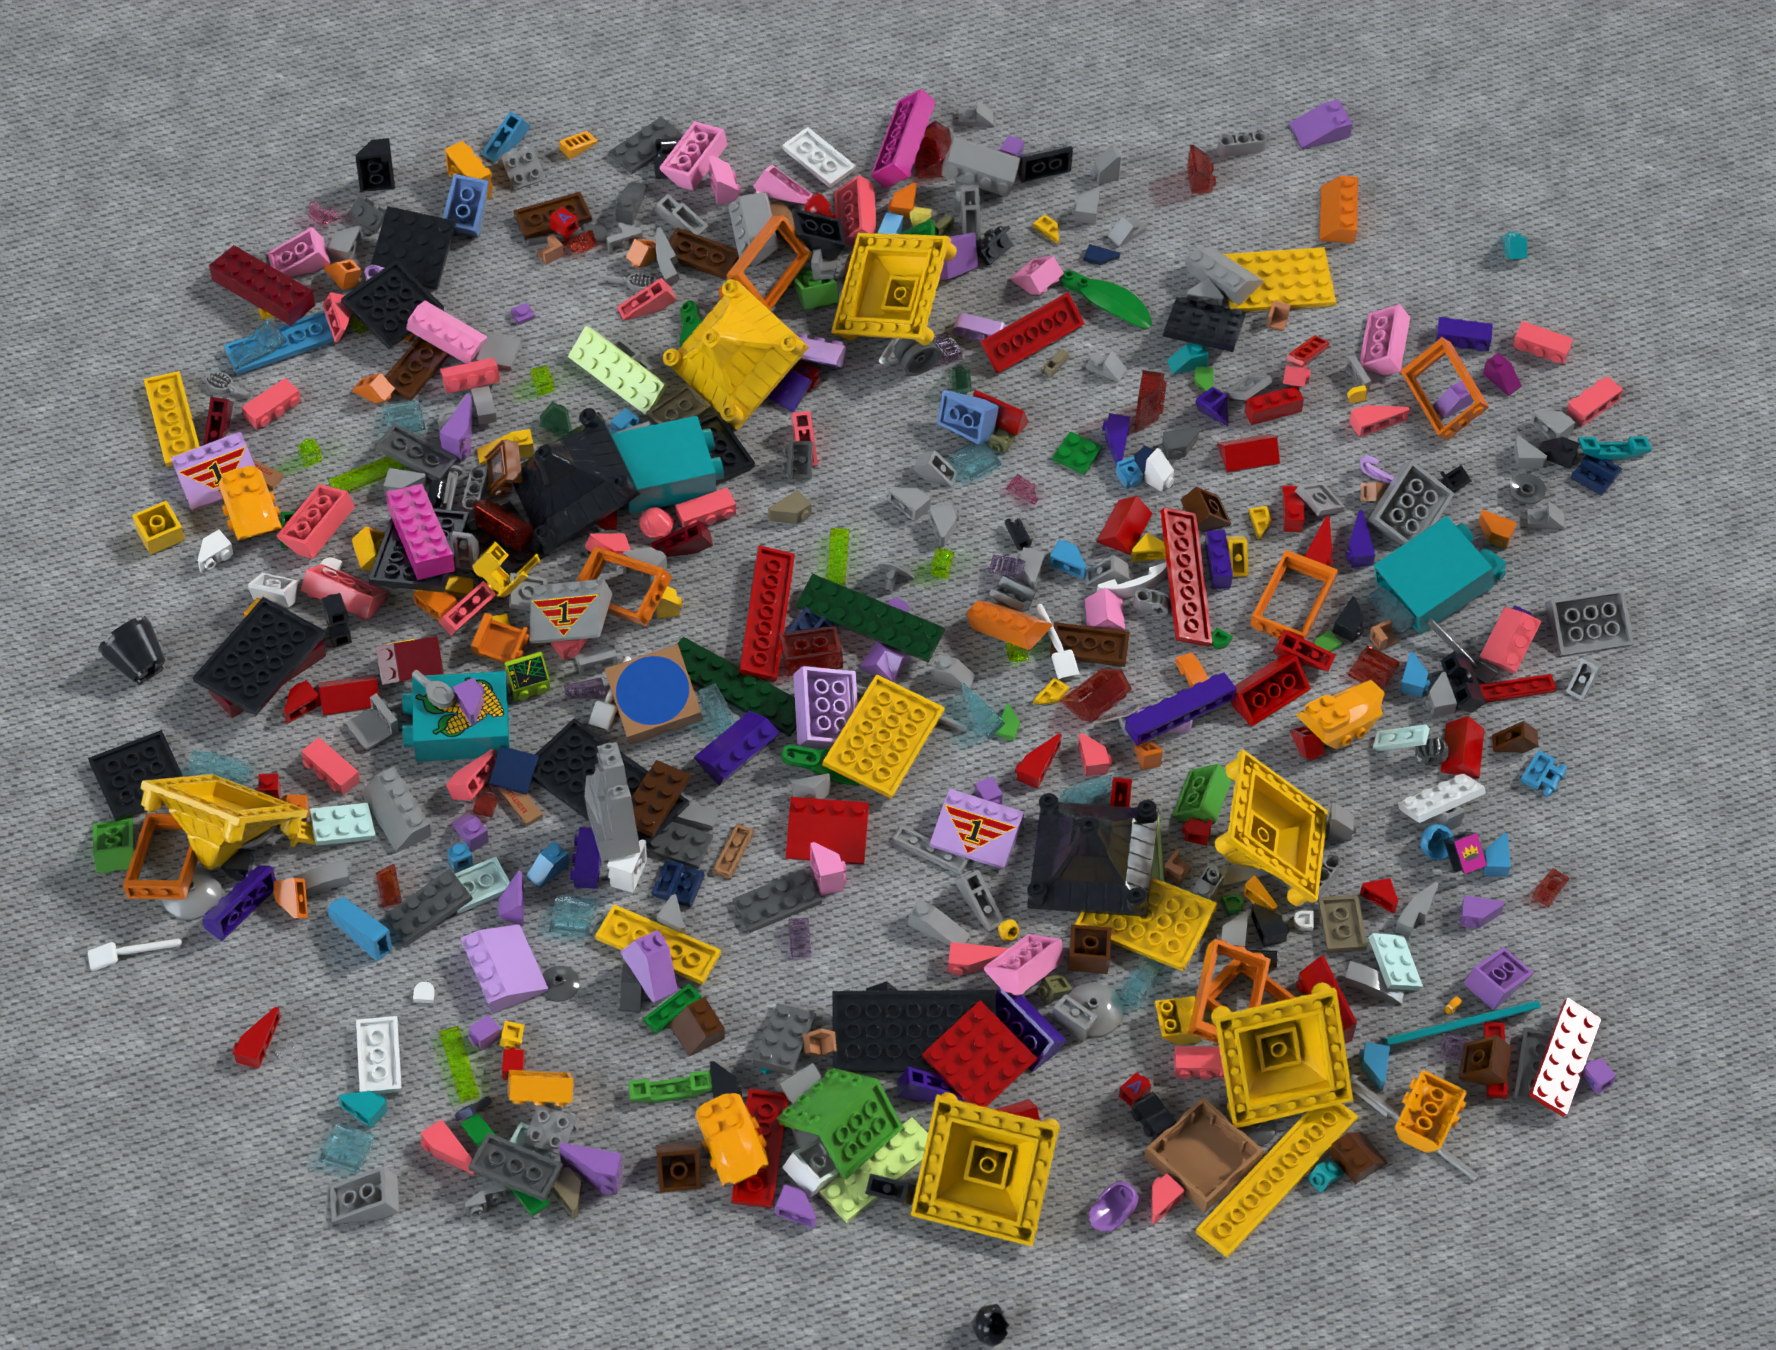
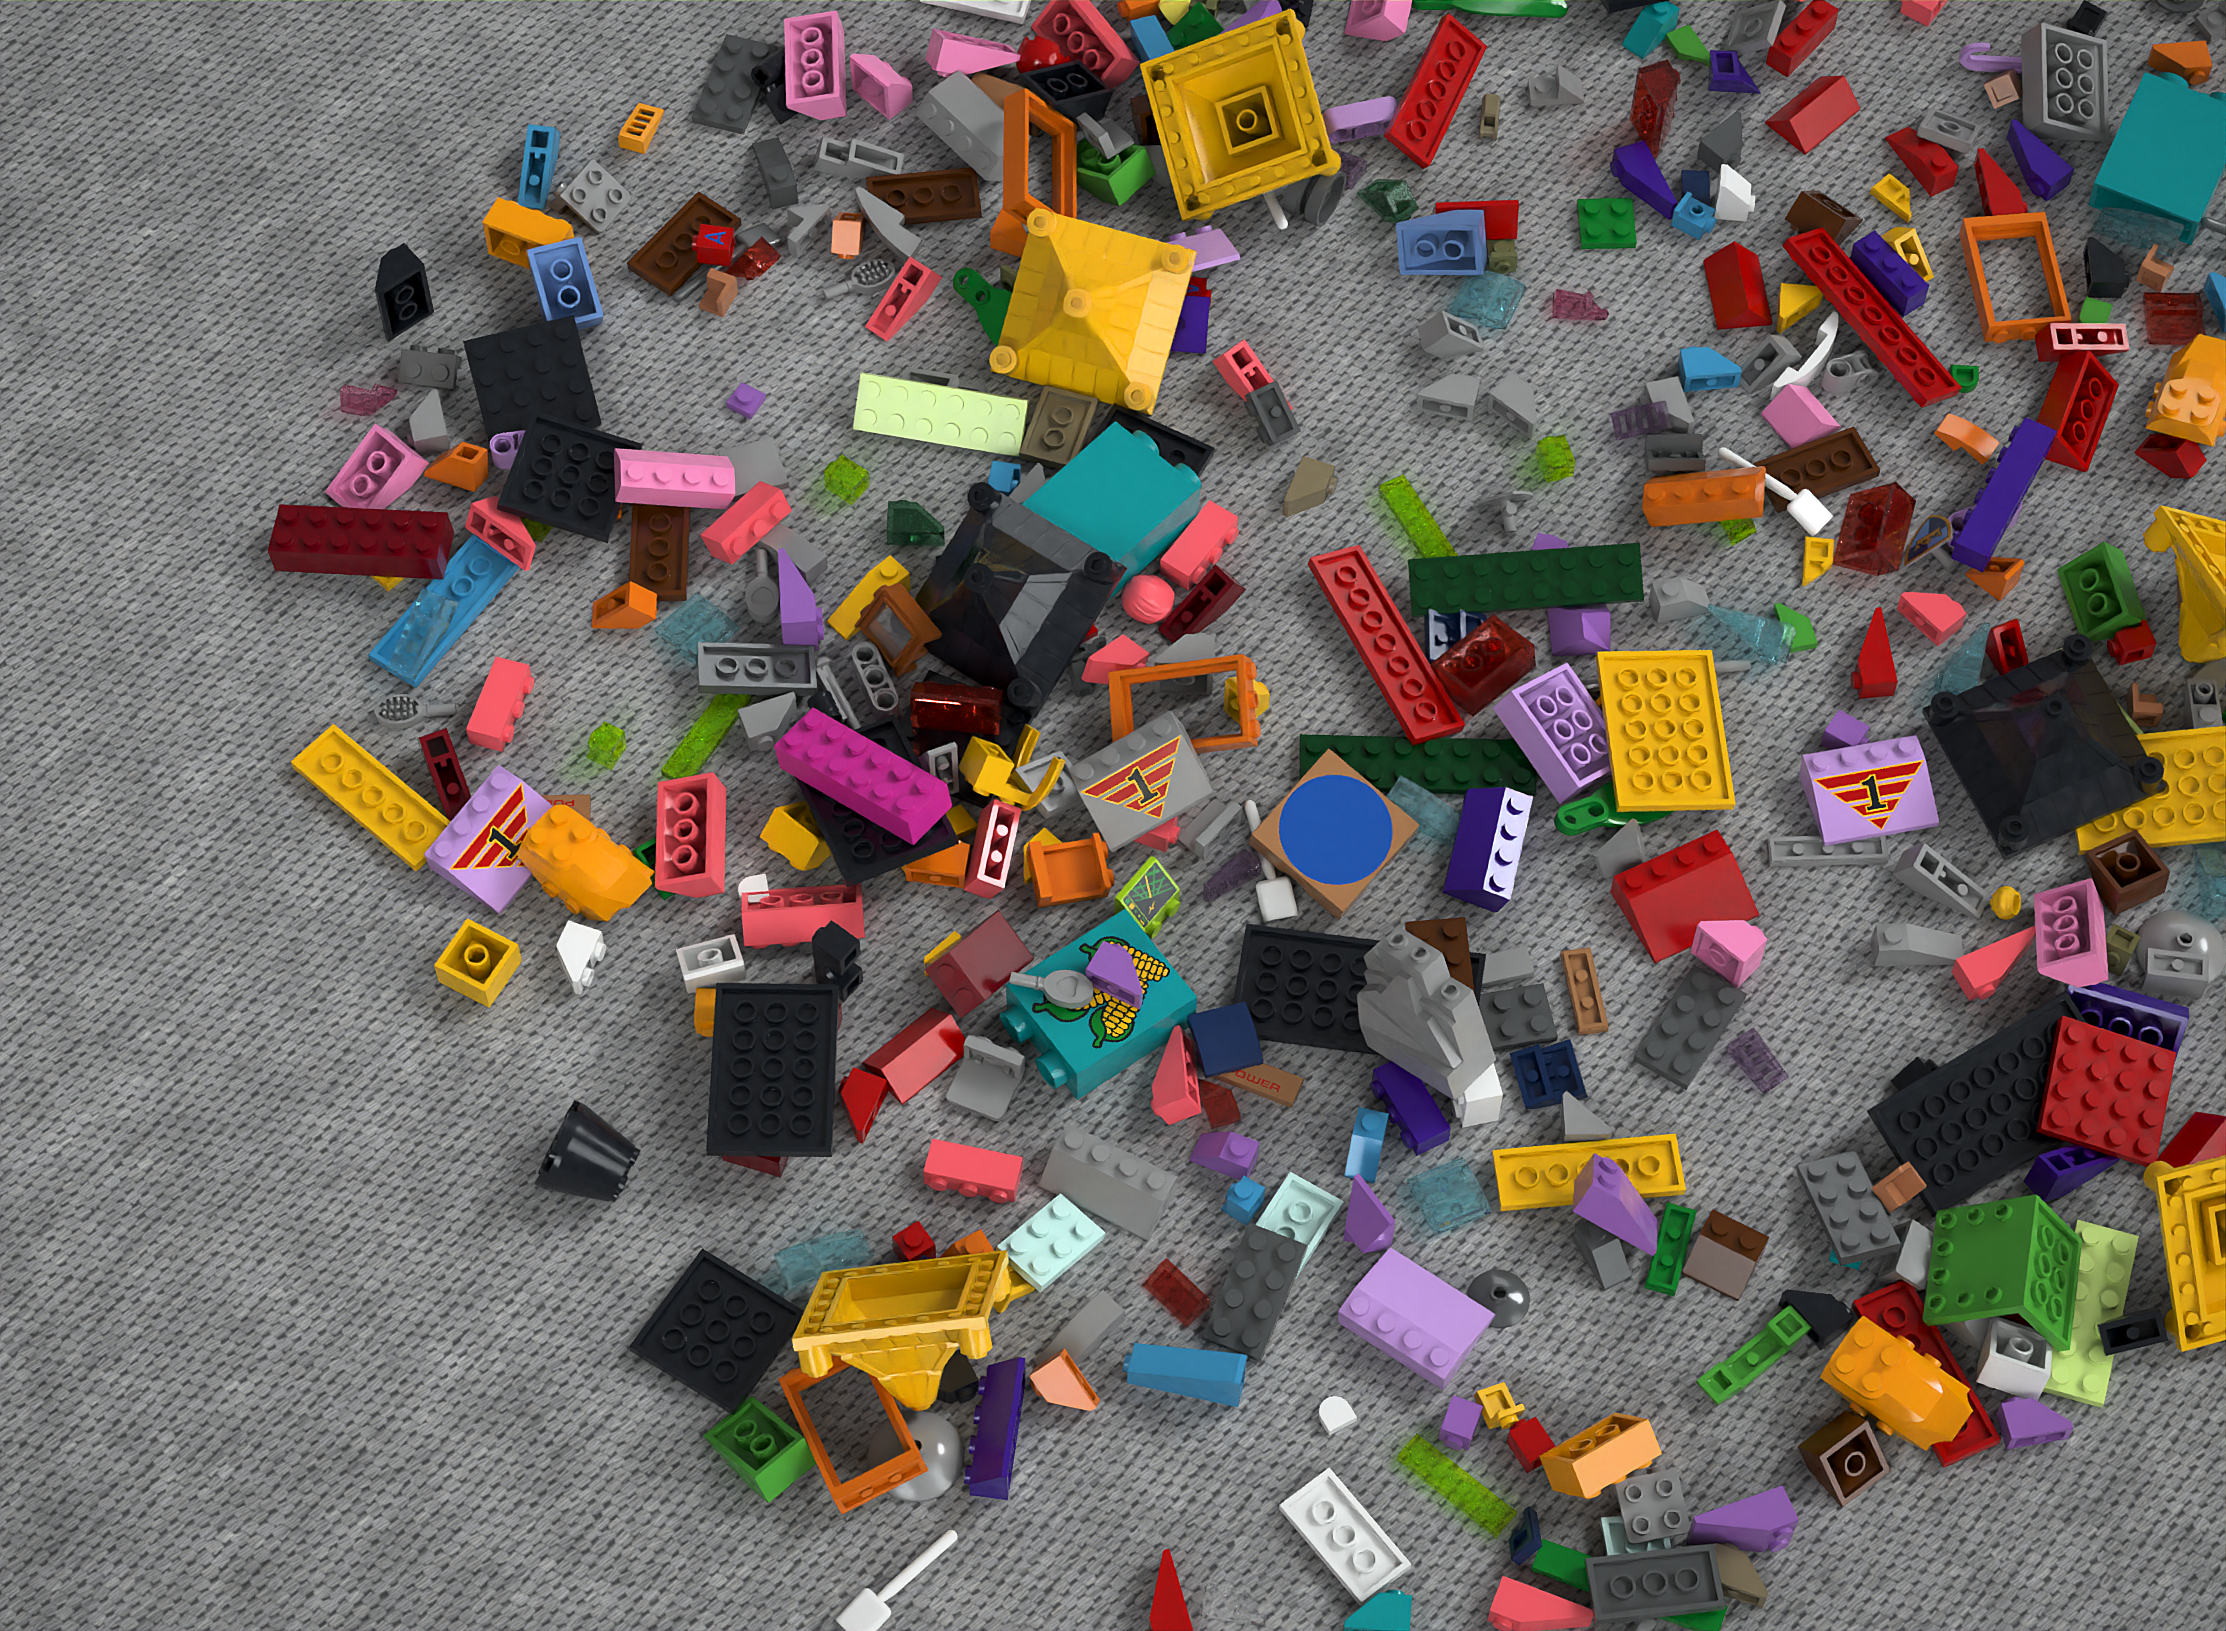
camera: 30 degrees left, 5 degrees up
(1018, 533) = (1616, 368): black hinge -> none

